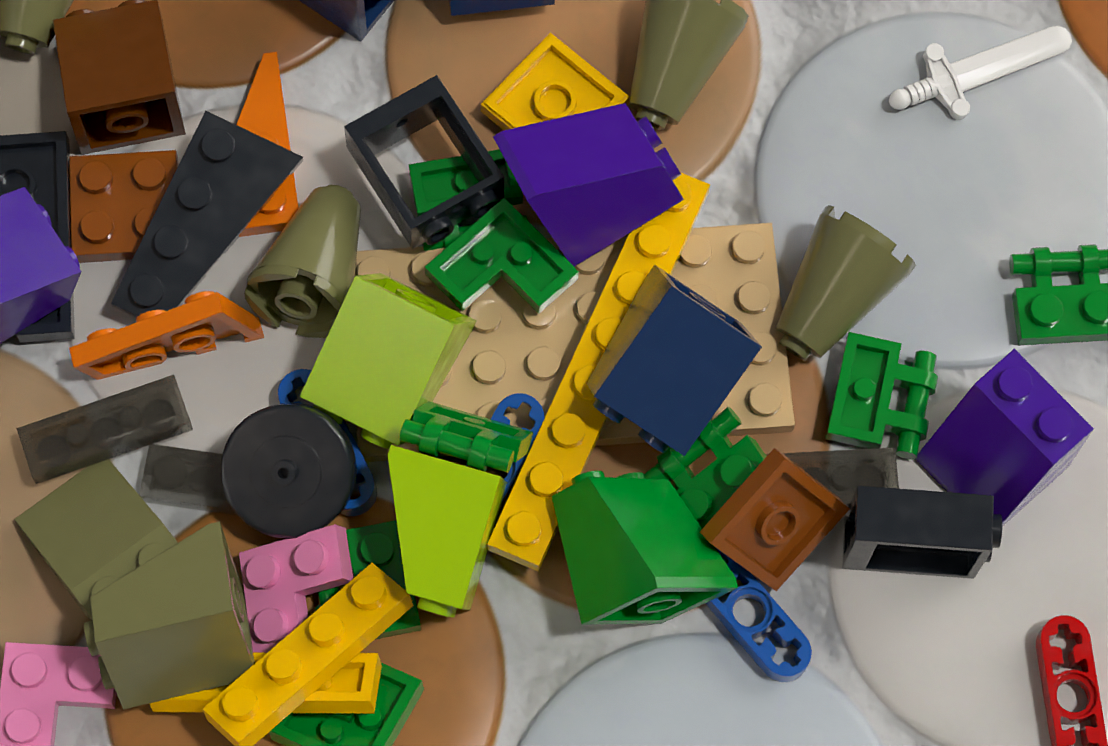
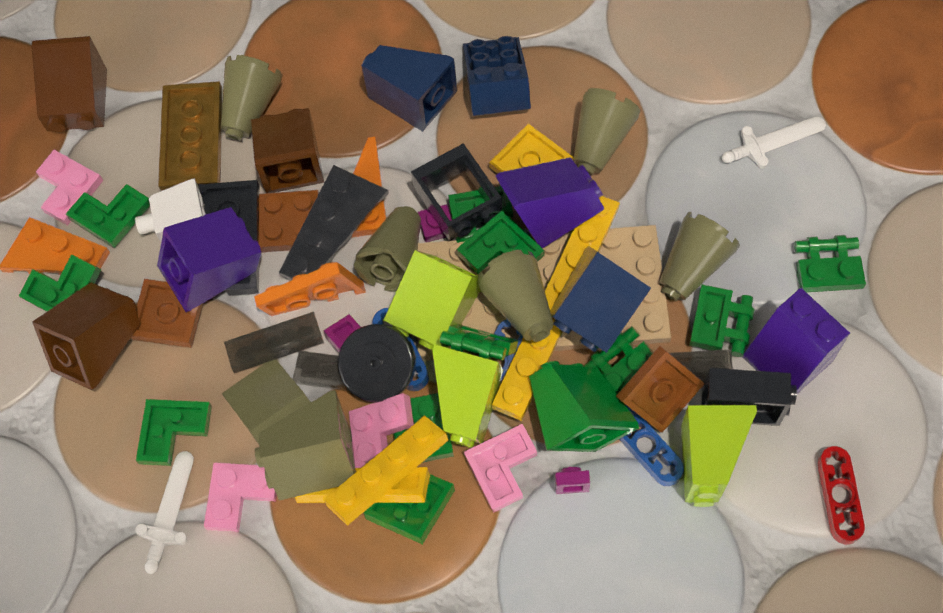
camera: 10 degrees right, 5 degrees down
(224, 412) = (339, 331): none -> magenta plate
(375, 219) = (429, 225): none -> magenta plate
(487, 645) = (492, 465): none -> bright pink plate
(535, 352) = (518, 293): none -> olive cone
(623, 674) = (572, 481): none -> magenta plate
(857, 622) = (710, 448): none -> lime slope

